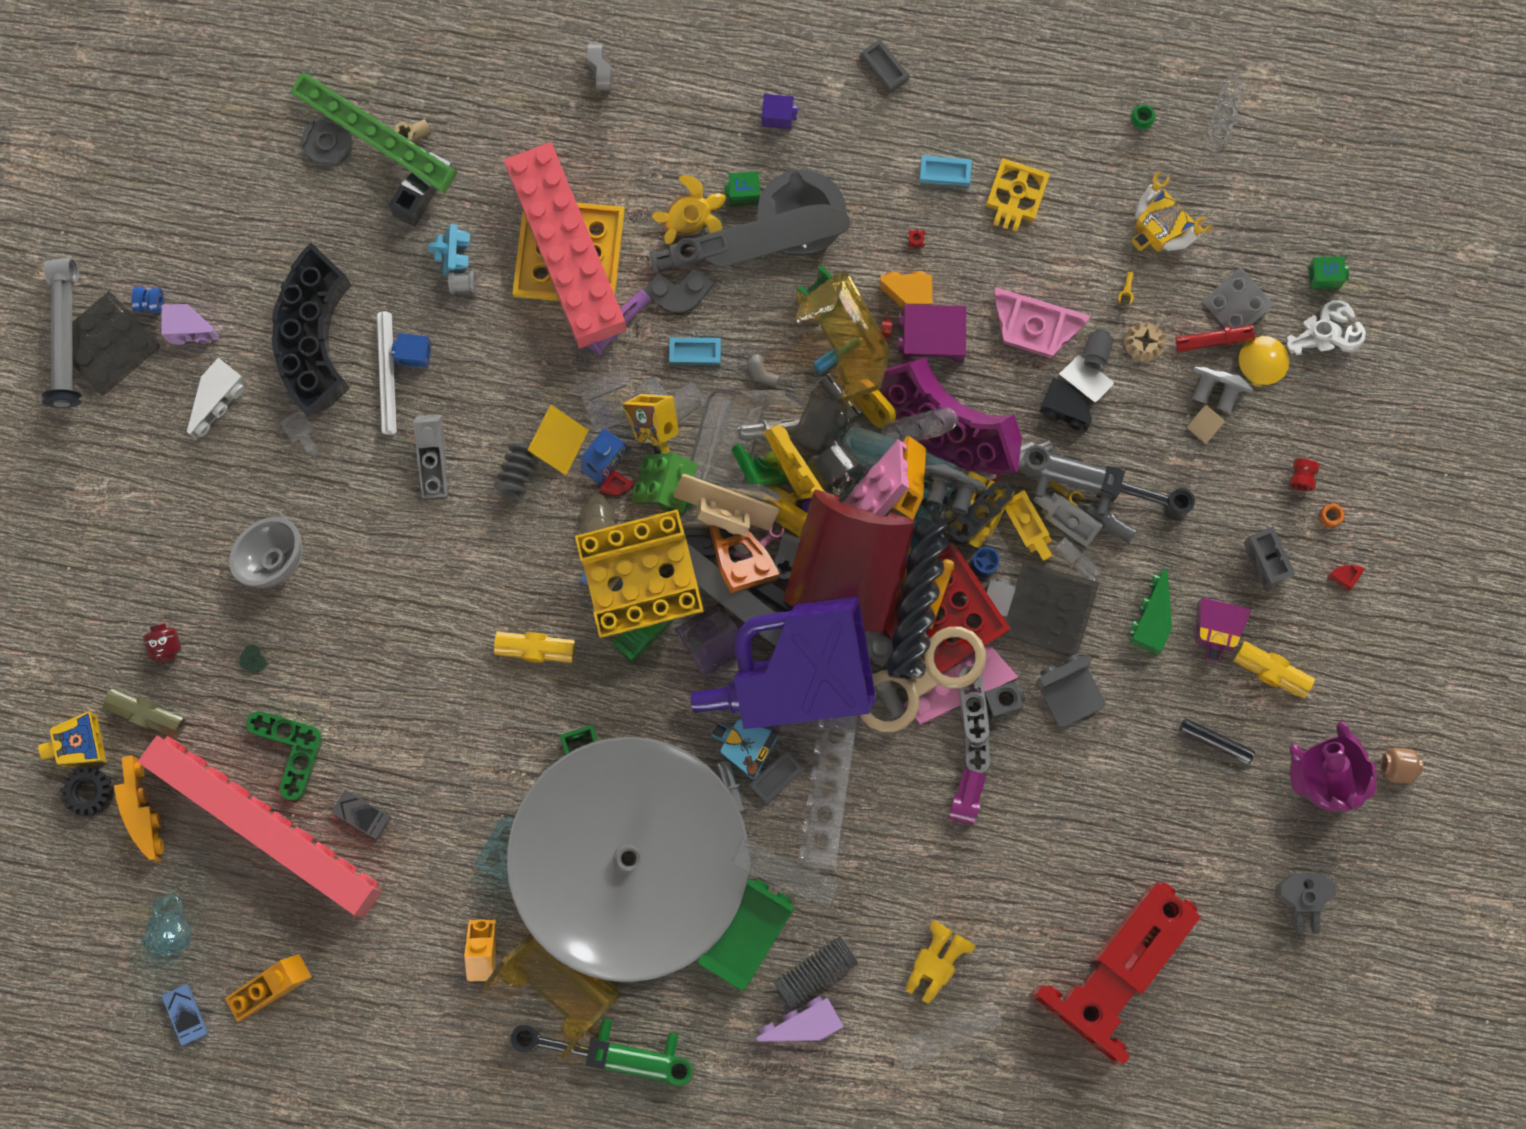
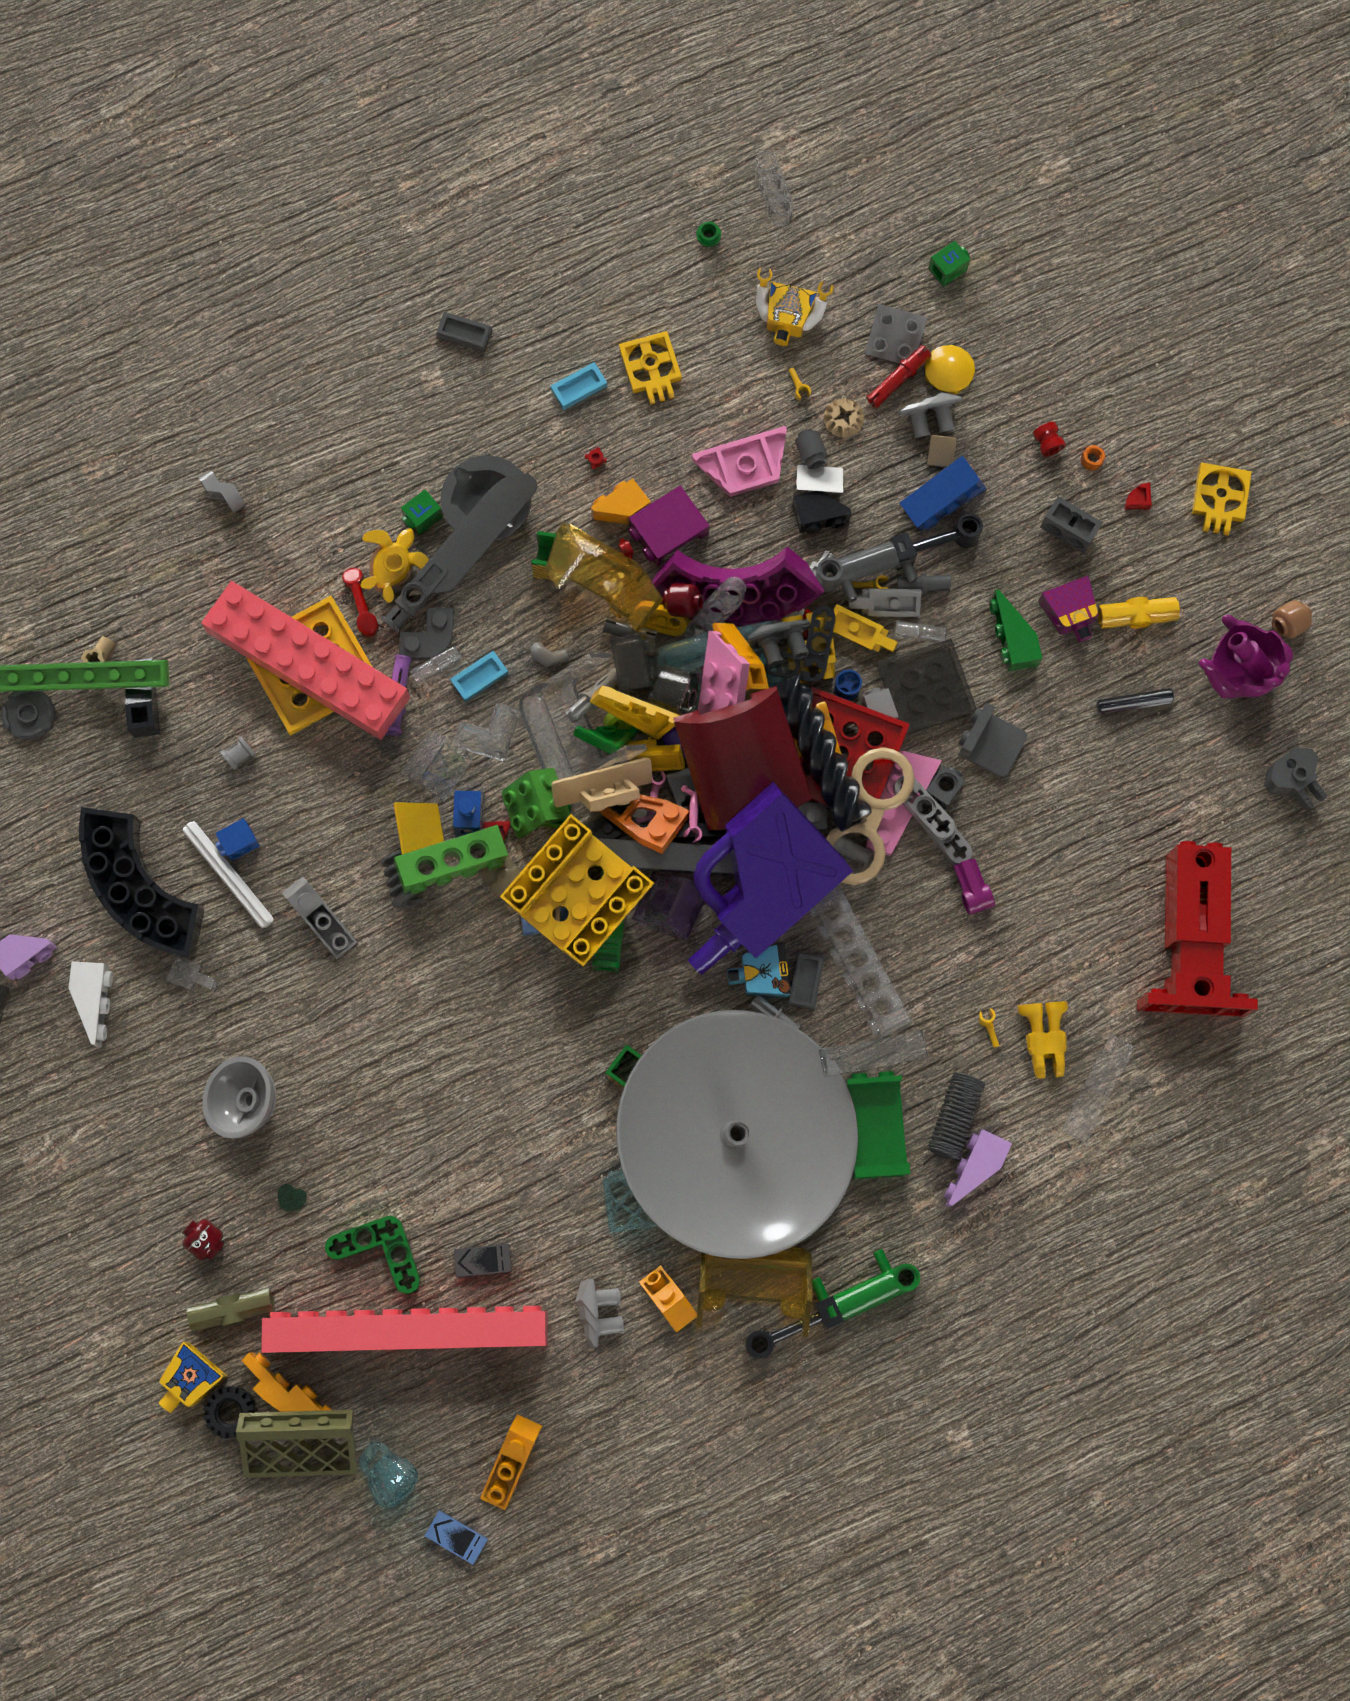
camera: 40 degrees left, 0 degrees up
(124, 840) = (296, 1427): none -> olive fence
(418, 906) = (588, 1302): none -> light grey connector
(453, 239) = (203, 733): medium azure hips -> none
(525, 461) = (487, 840): none -> bright green brick
(534, 647) = (527, 1016): yellow piece -> none
(636, 246) = (366, 621): none -> red bar
(652, 420) = (488, 756): yellow torso -> none
(666, 318) = (436, 665): none -> clear axle
(778, 111) = (403, 428): dark purple brick -> none
(780, 578) = (693, 814): none -> bright pink piece
(826, 362) = (596, 610): dark azure axle -> none
(897, 922) = (989, 1026): none -> yellow hand
(898, 400) = (683, 600): none -> dark red head
(1180, 460) = (943, 494): none -> blue wedge
(1326, 333) = (984, 312): white animal -> none
(1403, 636) = (1217, 514): none -> yellow piece

